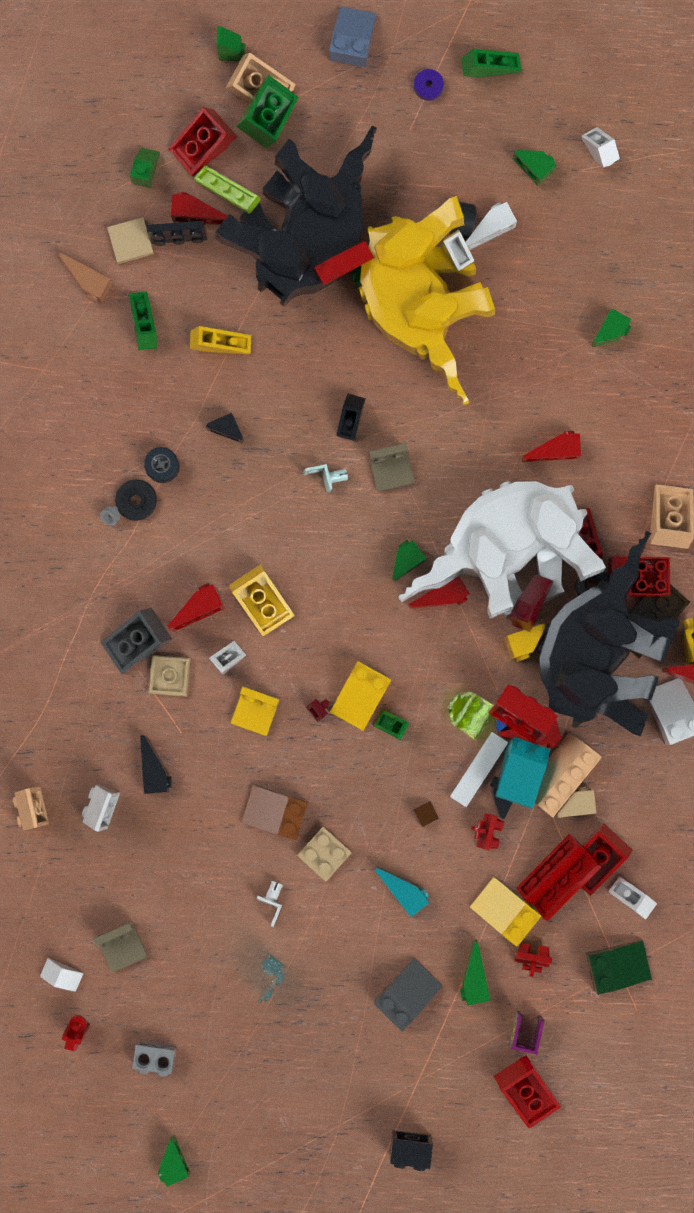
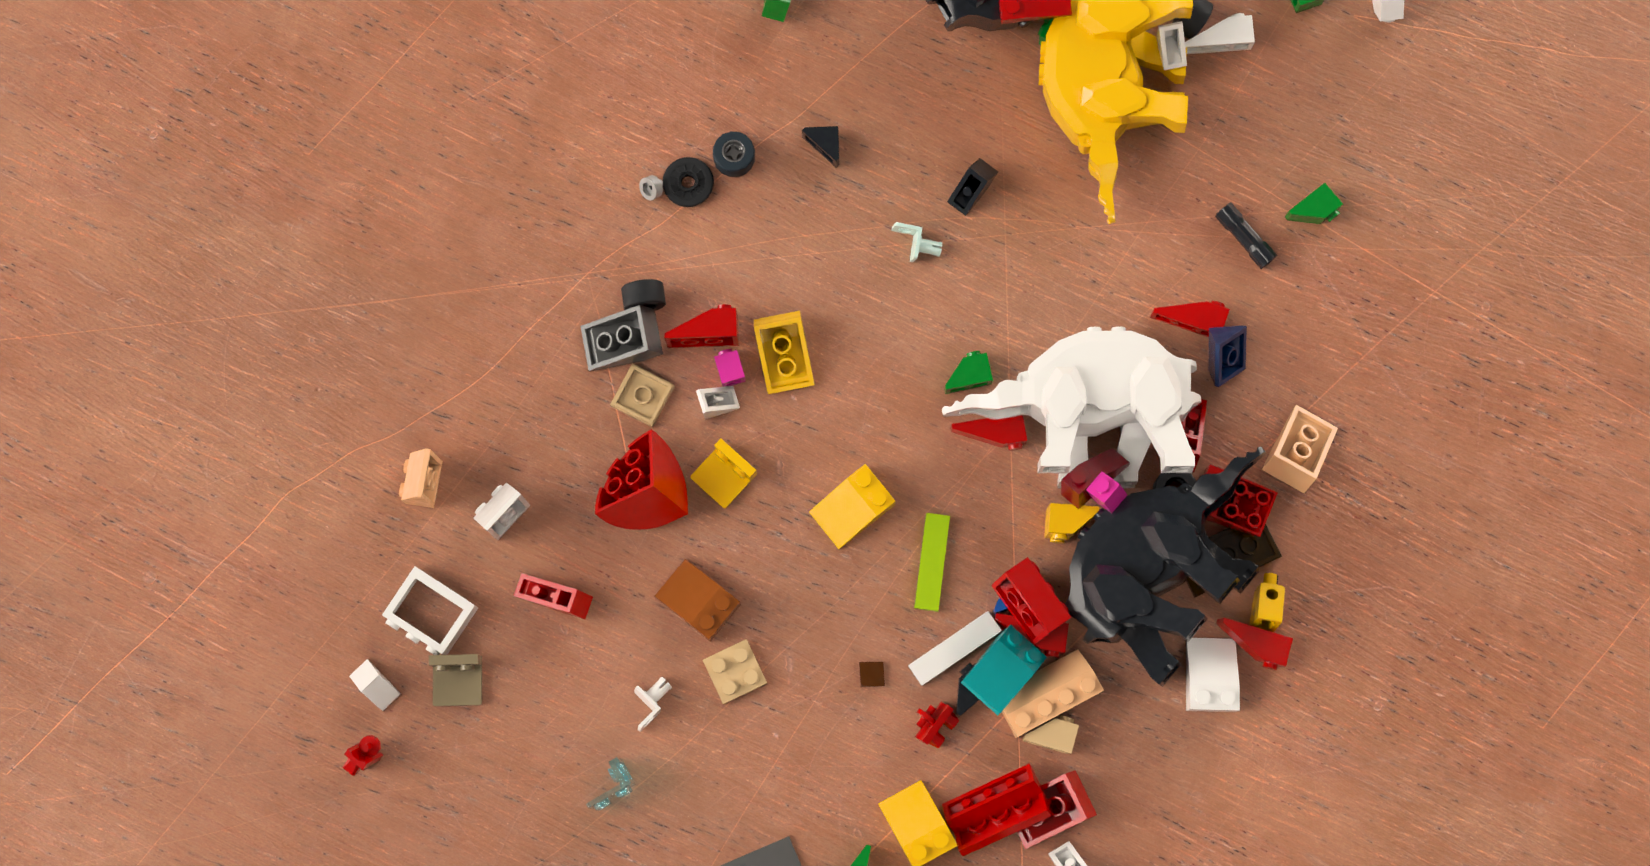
camera: 20 degrees right, 5 degrees down
(76, 926) = (416, 635): none -> white window
(139, 600) = (645, 293): none -> black tyre
(154, 772) = (578, 498): black slope -> none
(154, 1052) = (443, 819): light grey brick -> none
(166, 854) = (553, 596): none -> red slope
(199, 745) = (643, 487): none -> red brick
(219, 341) = (858, 42): yellow slope -> none
(226, 628) = (729, 367): none -> dark pink brick
(318, 709) = (797, 502): dark red tile -> none
(391, 467) = (996, 261): dark tan bracket -> none
(391, 724) = (874, 555): green slope -> none
(406, 893) = (811, 756): teal slope -> none
(436, 712) = (932, 562): none -> lime tile
(469, 713) = (970, 579): clear neon green slope -> none
(546, 611) = (1106, 492): none -> dark pink brick
(556, 365) = (1234, 222): none -> black axle
(590, 467) = (1226, 353): none -> dark blue slope

